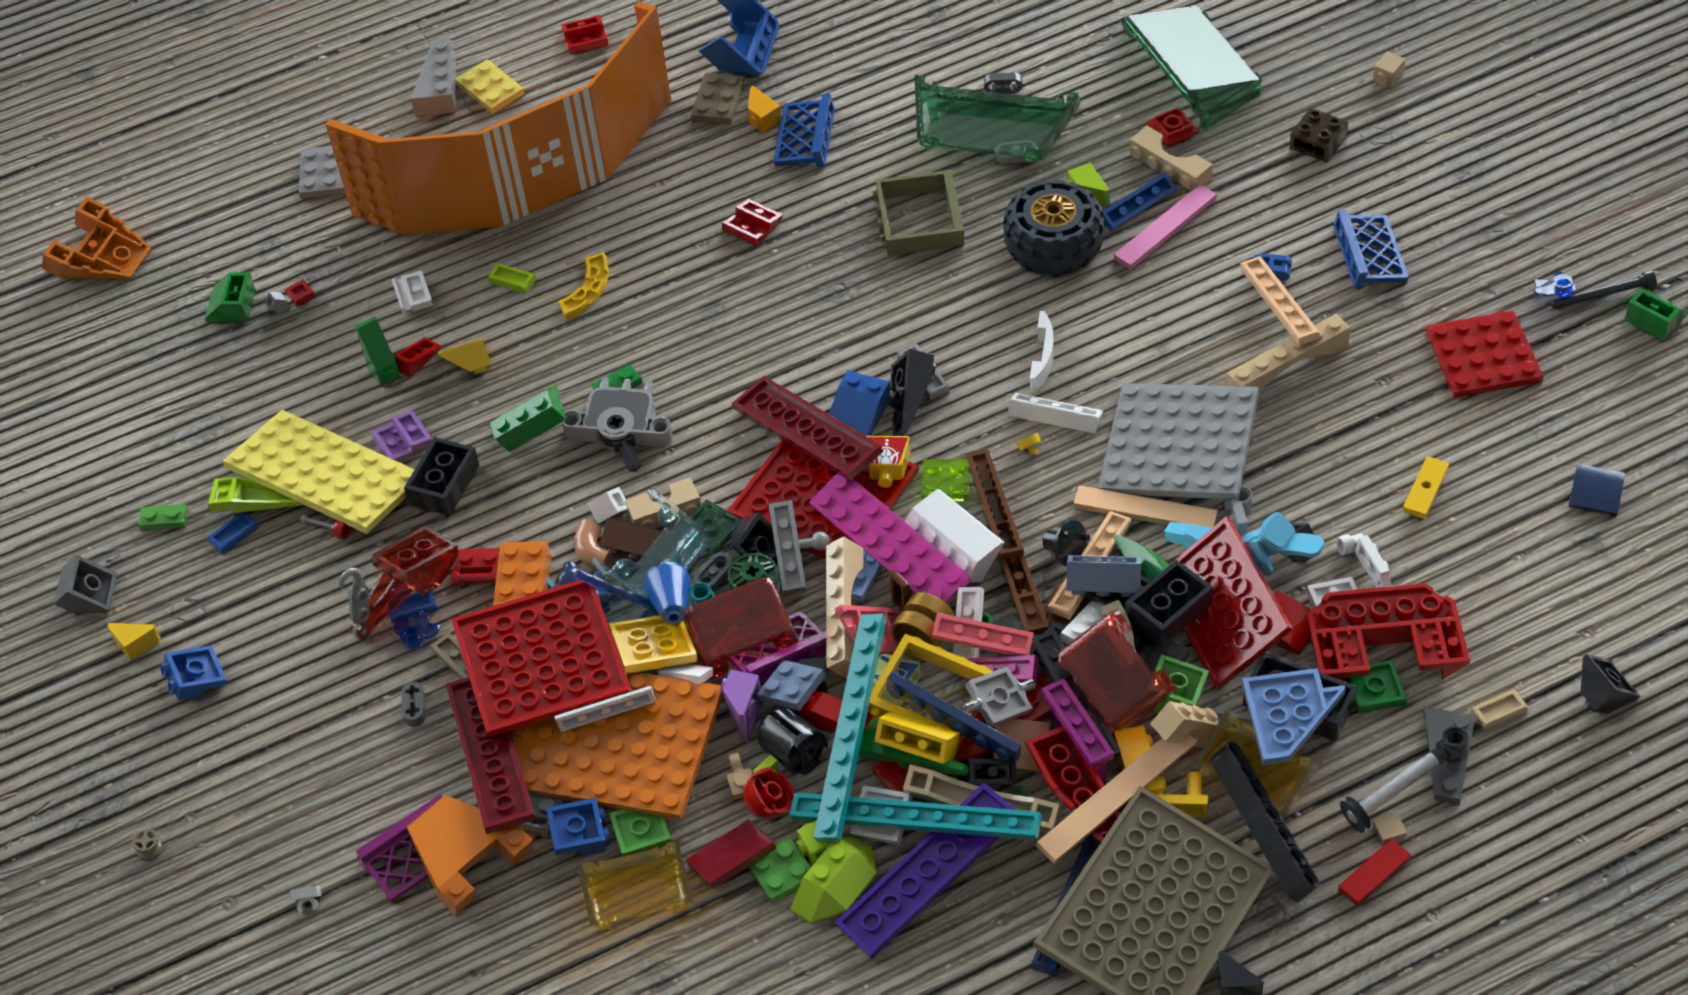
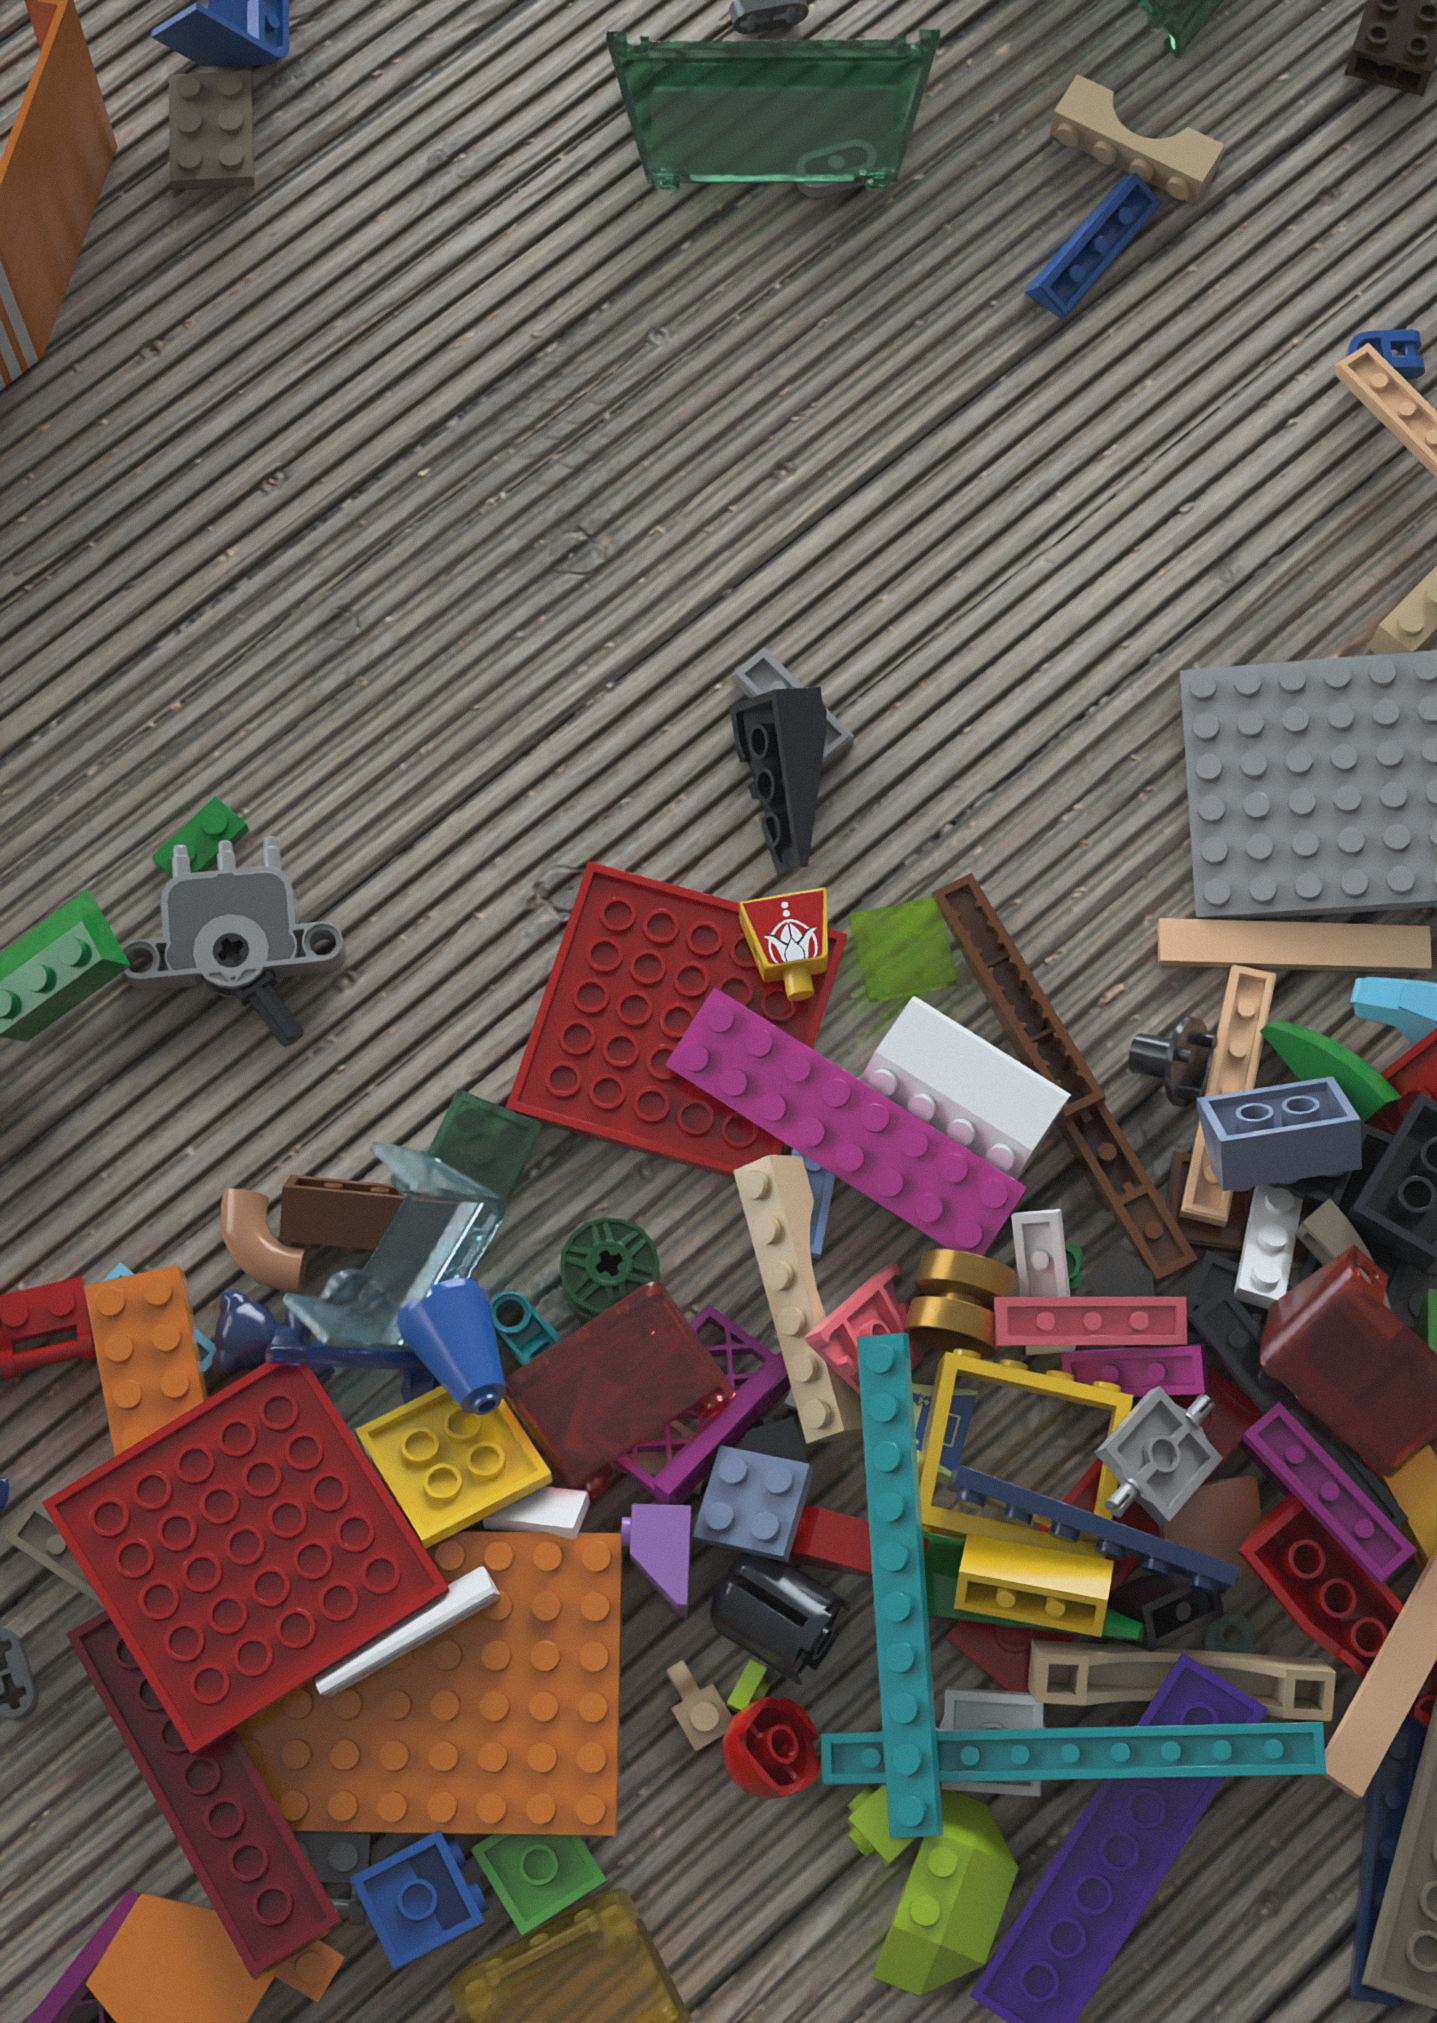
camera: 20 degrees left, 20 degrees up
(593, 287) = (84, 628): yellow tile -> none
(607, 505) = (266, 1137): white panel -> none
(645, 512) = (415, 1103): tan arch -> none
(711, 572) = (515, 1253): dark grey plate -> none
(730, 854) = (730, 1888): dark red tile -> none
(752, 222) = (363, 416): red slope -> none
(754, 536) = (585, 1170): black slope -> none
(762, 110) = (313, 149): light orange slope -> none
(780, 871) = (831, 1894): bright green plate -> none
(789, 546) = (653, 1172): light grey plate -> none
(807, 428) = (618, 898): dark red plate -> none
(820, 132) = (444, 187): blue fence -> none
(860, 401) = (693, 819): blue slope -> none
(900, 590) = (899, 1238): reddish brown slope -> none
(917, 185) = (668, 276): olive window -> none
(1029, 443) = (1042, 840): yellow tile -> none
(1041, 369) = (1007, 582): white slope -> none
(1053, 227) = (964, 342): black wheel -> none
(1054, 413) = (1068, 757): white slope -> none
(1089, 179) = (996, 225): lime slope -> none
(1165, 227) = (1163, 295): bright pink tile -> none
(1181, 126) = (1126, 78): red piece -> none

